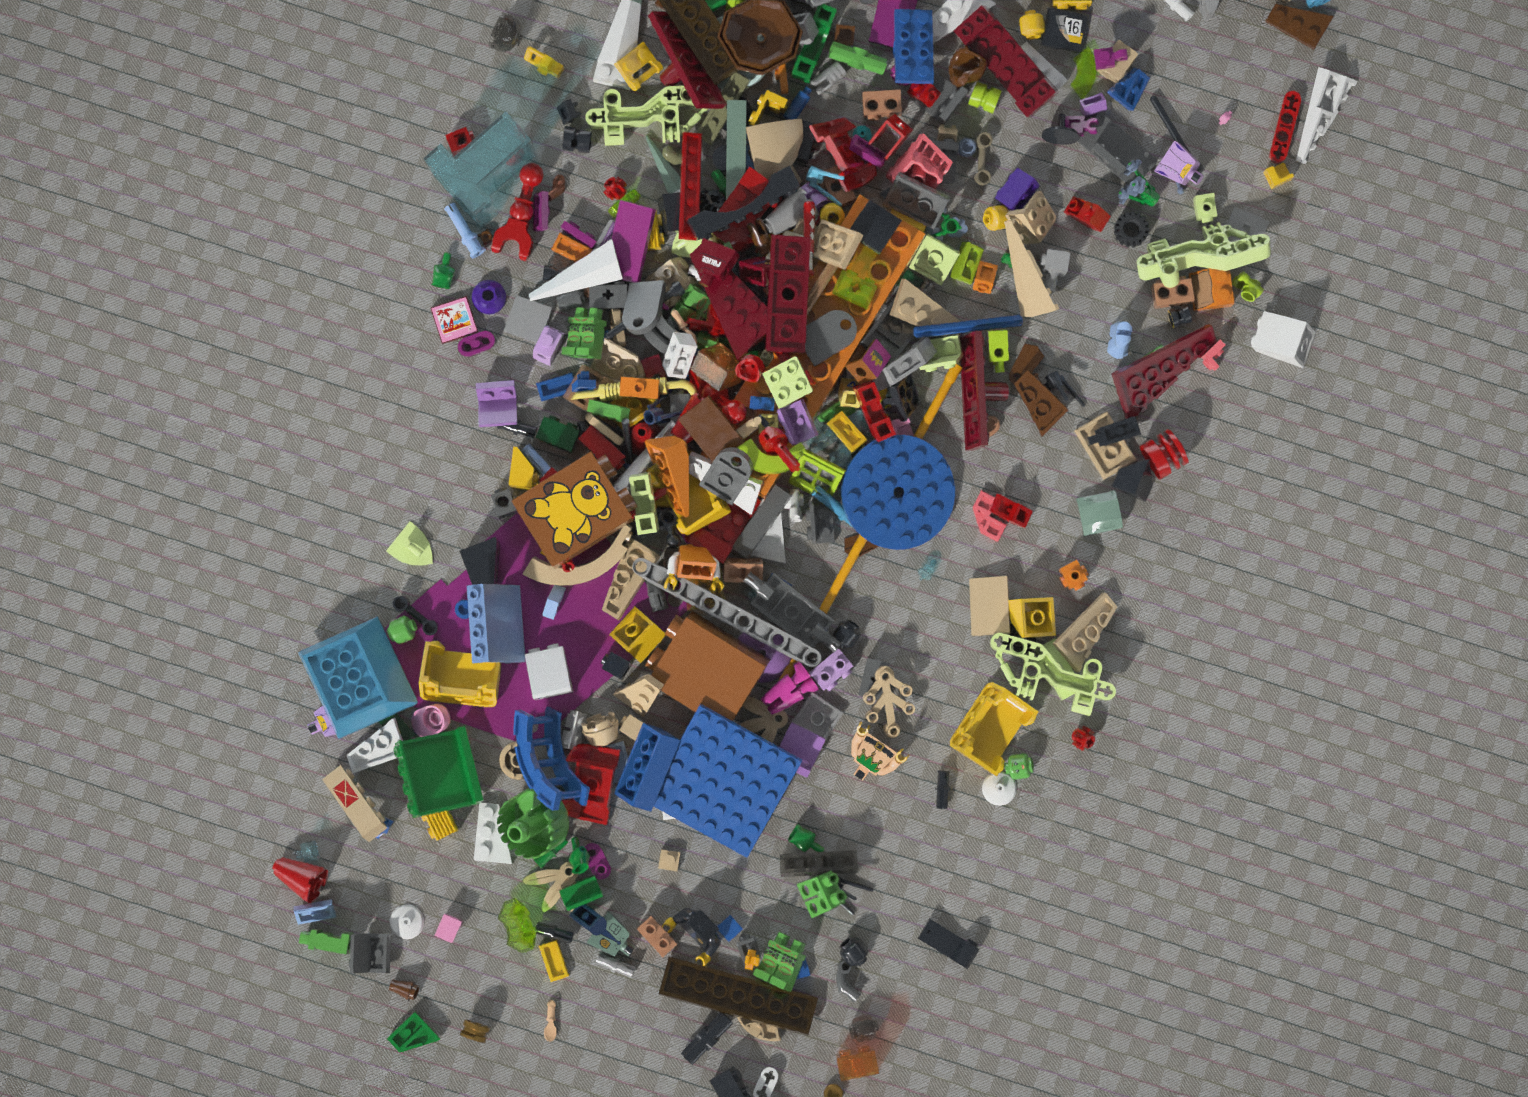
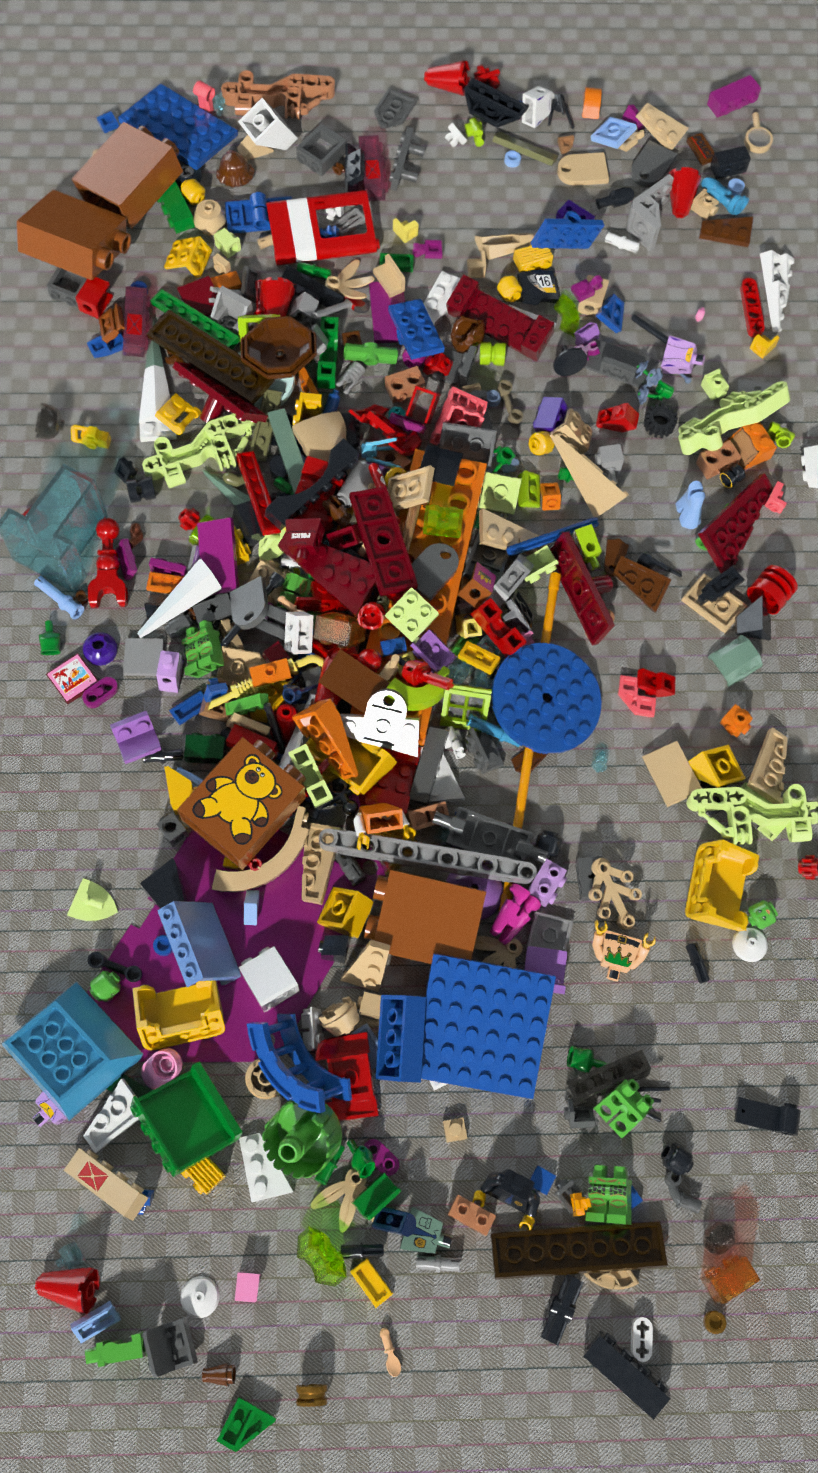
camera: 25 degrees left, 15 degrees down
(781, 886) = (579, 1116): none -> dark grey bracket

